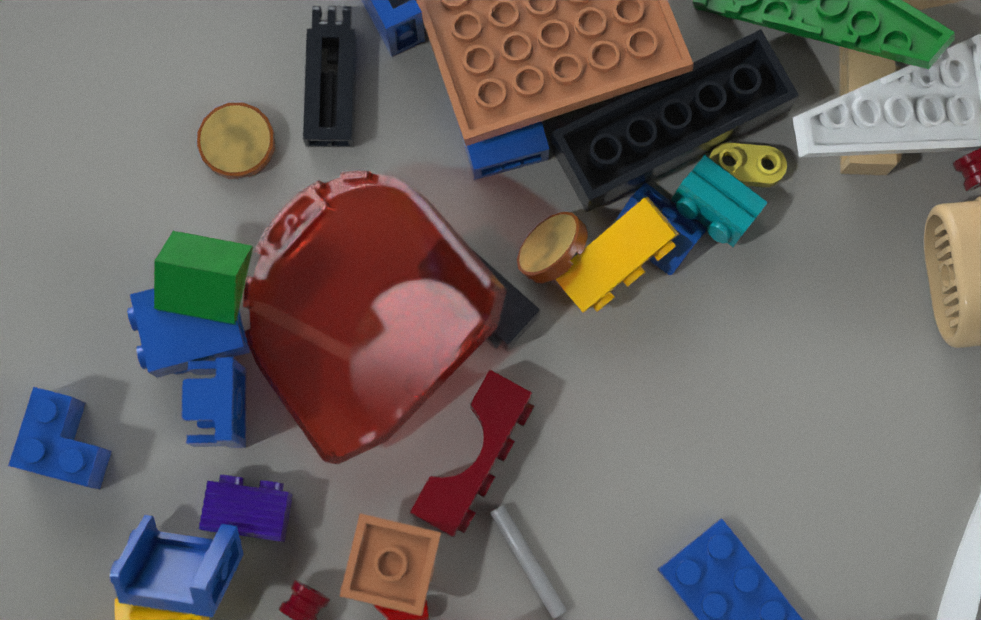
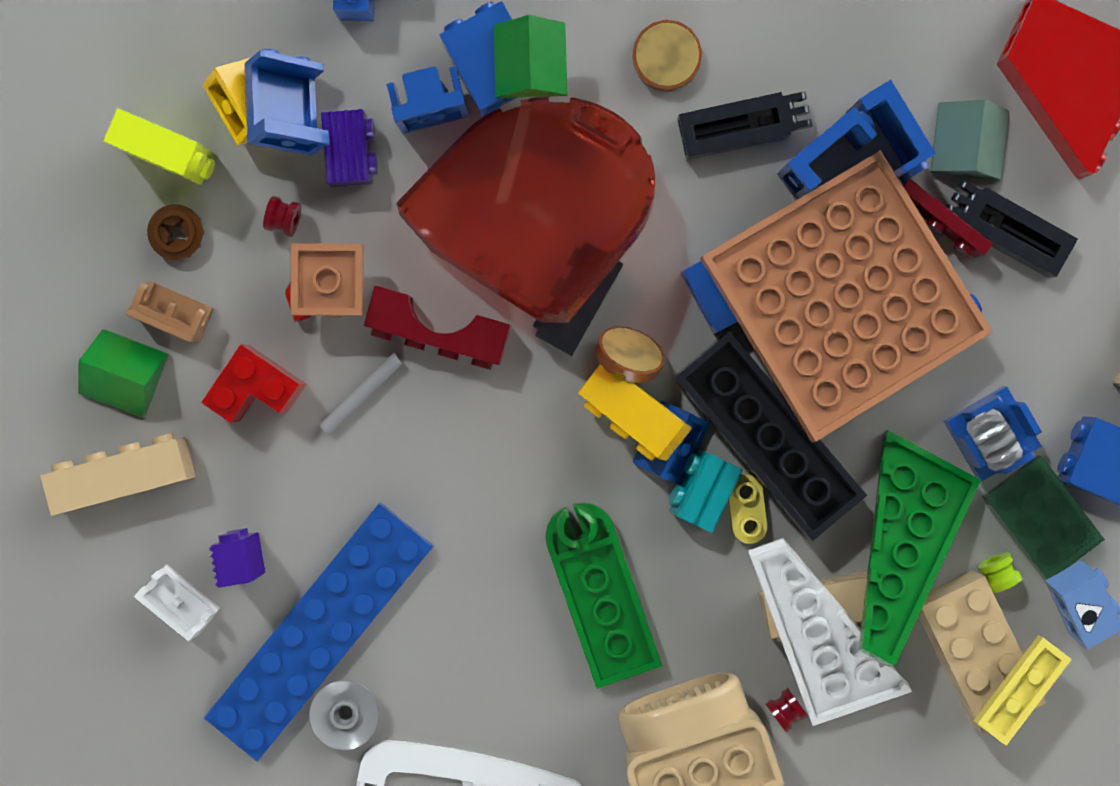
camera: 80 degrees right, 10 degrees up
(812, 341) = (600, 595): none -> green plate

